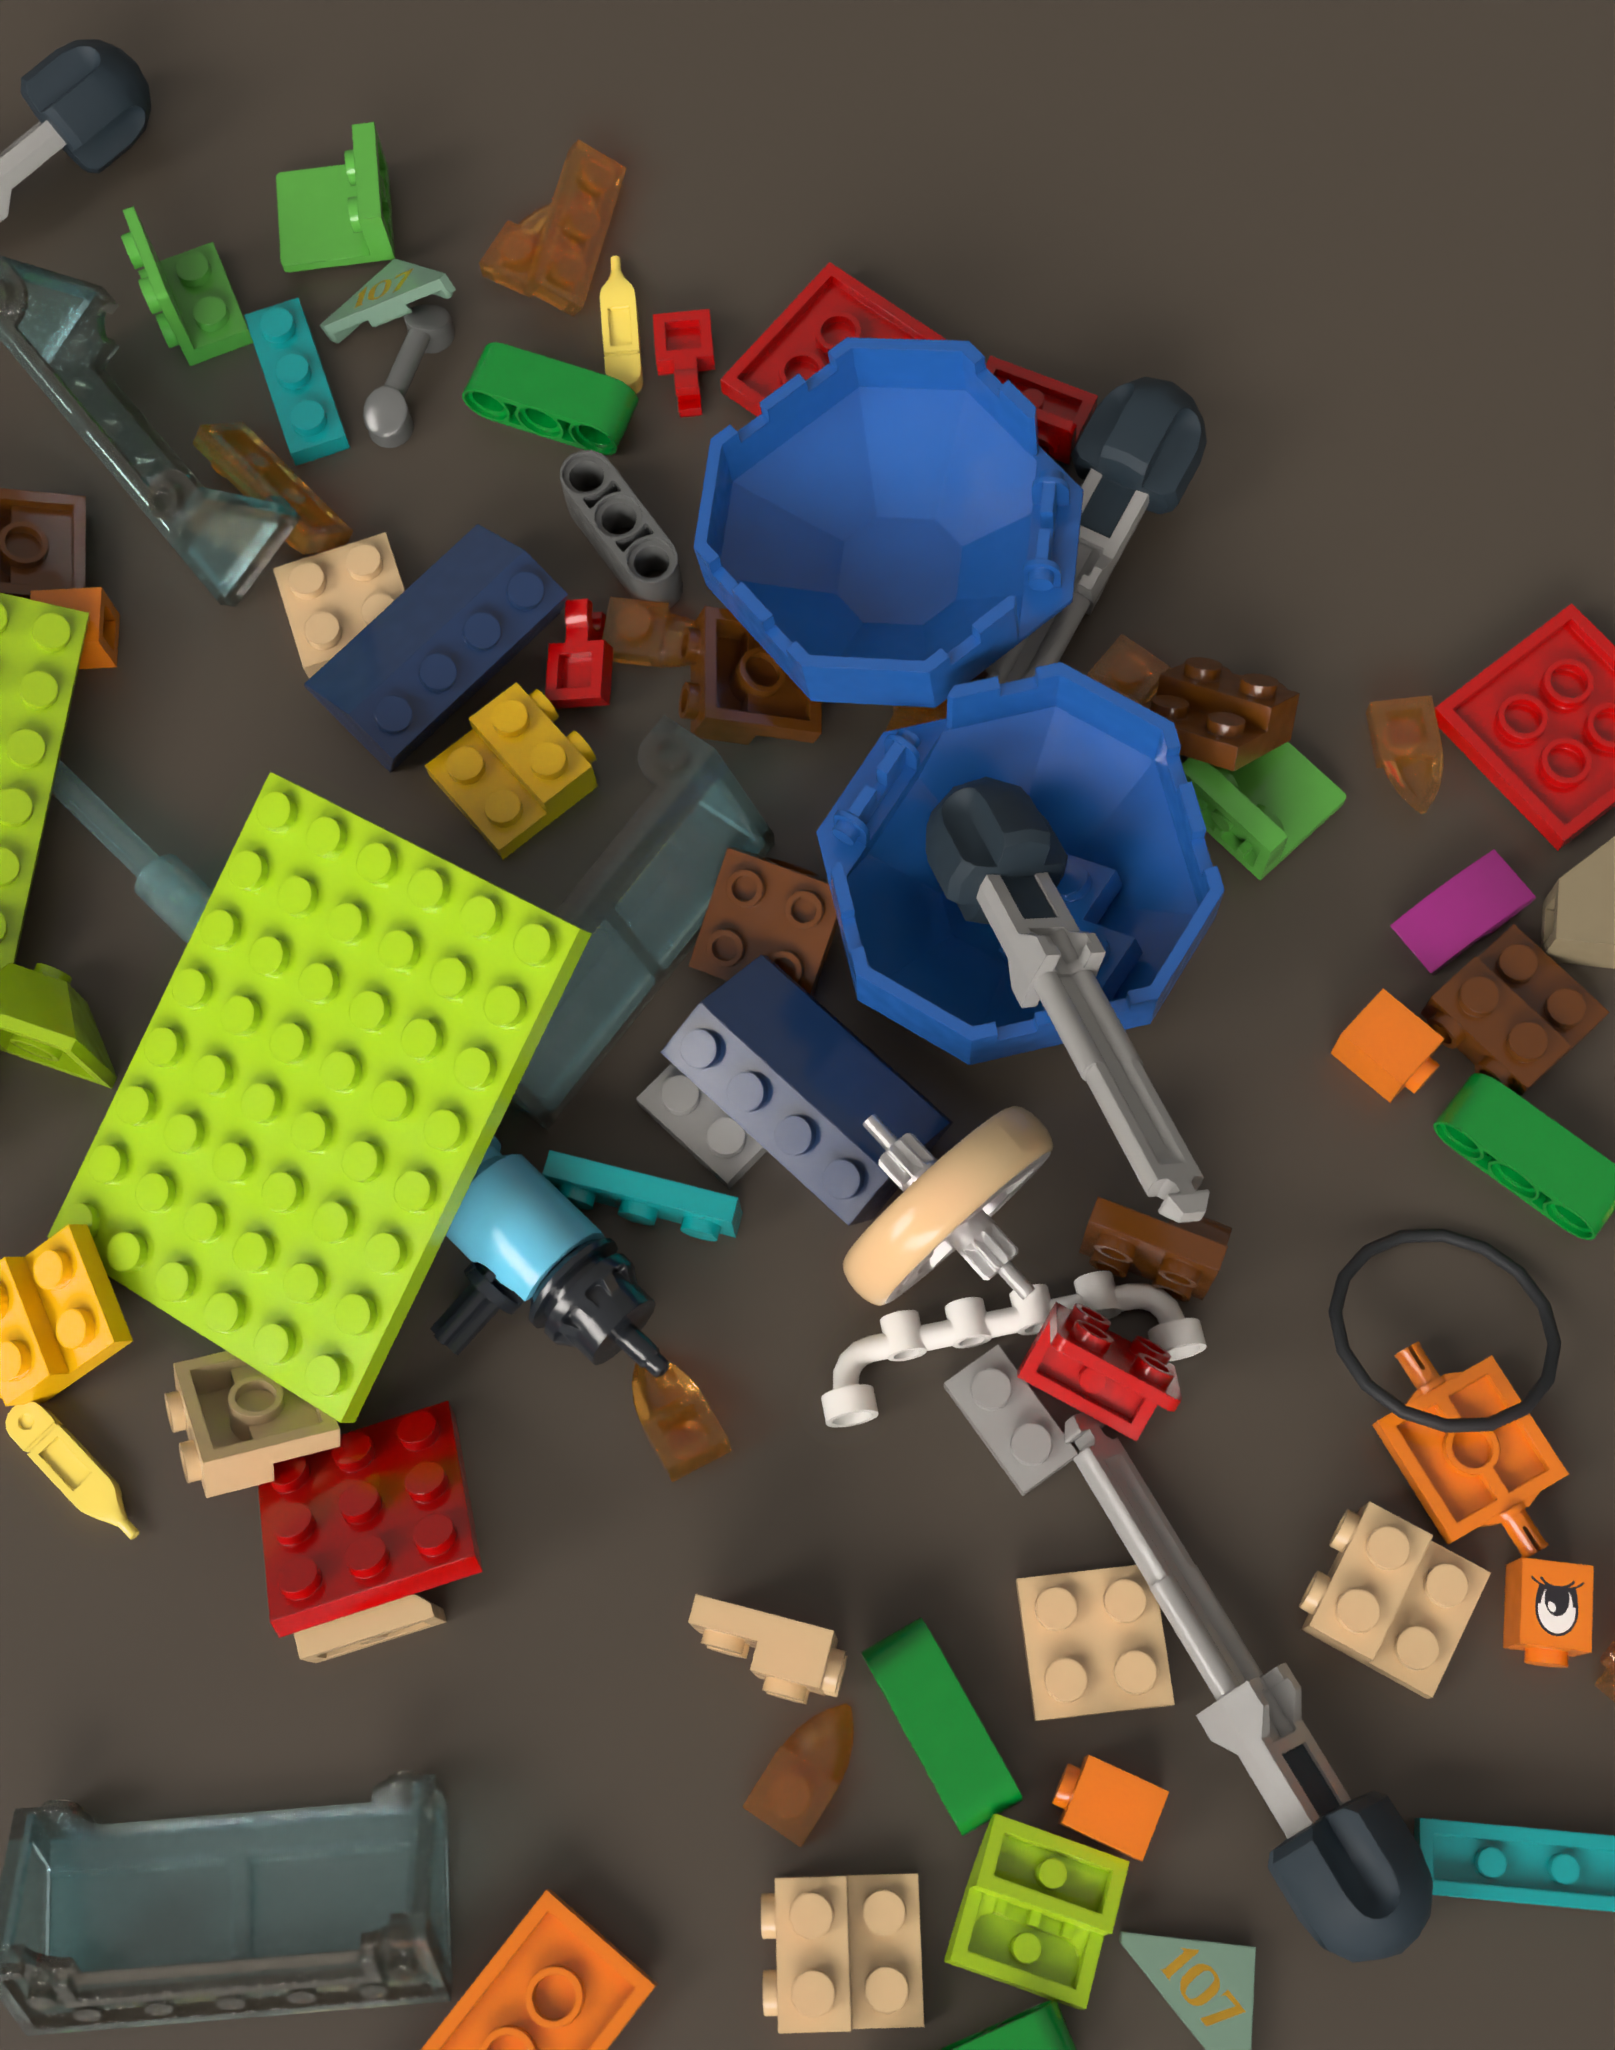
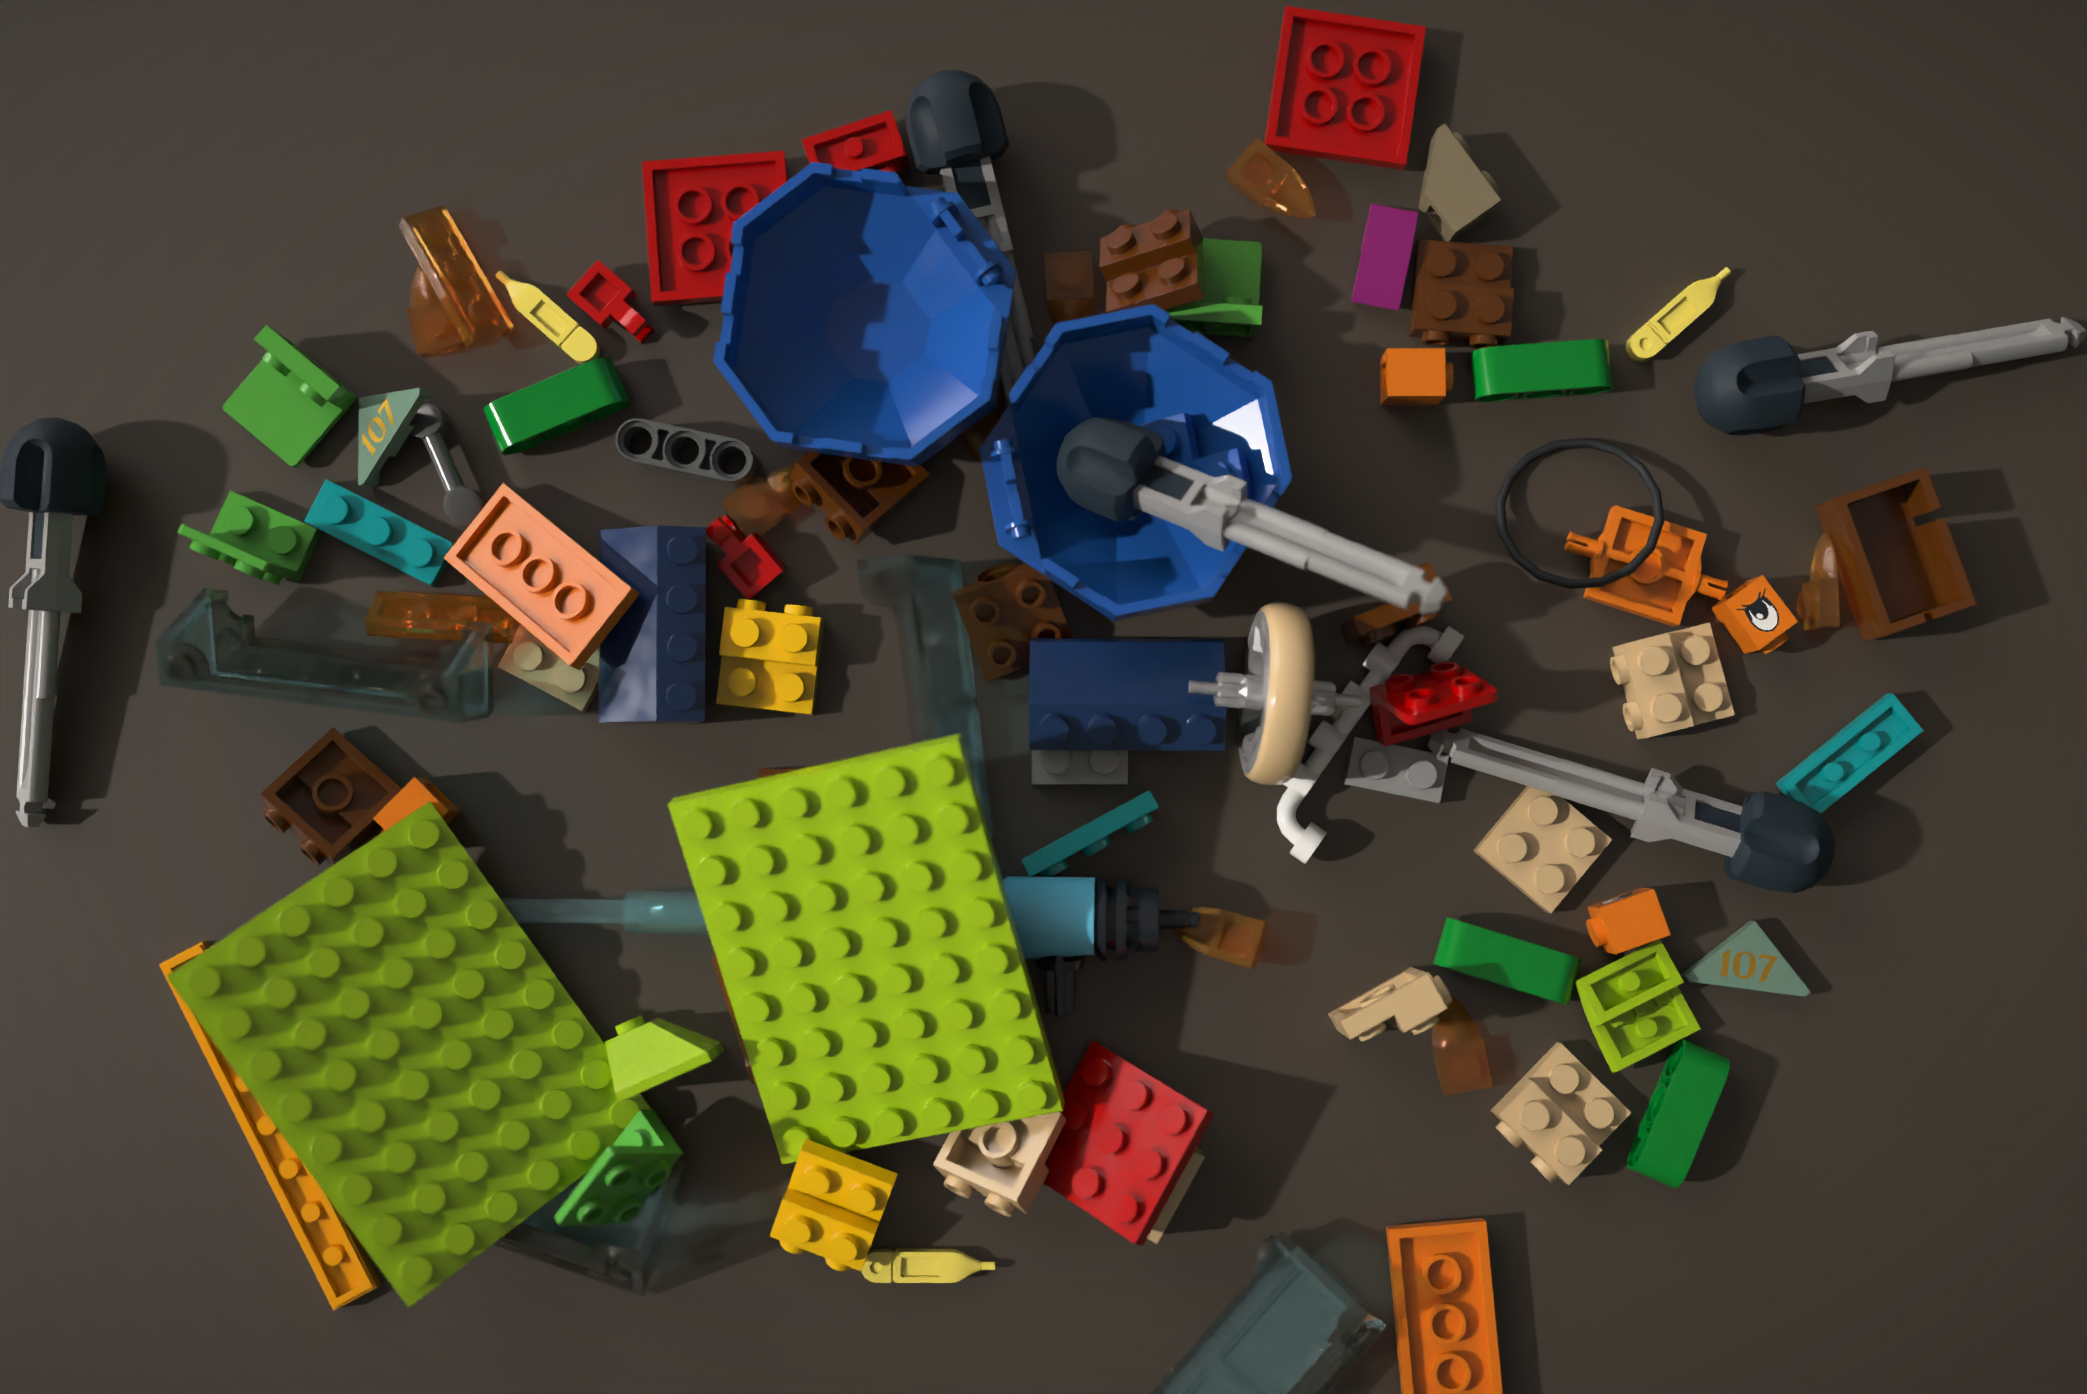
camera: 50 degrees left, 15 degrees up
(384, 518) = (541, 576): none -> orange plate

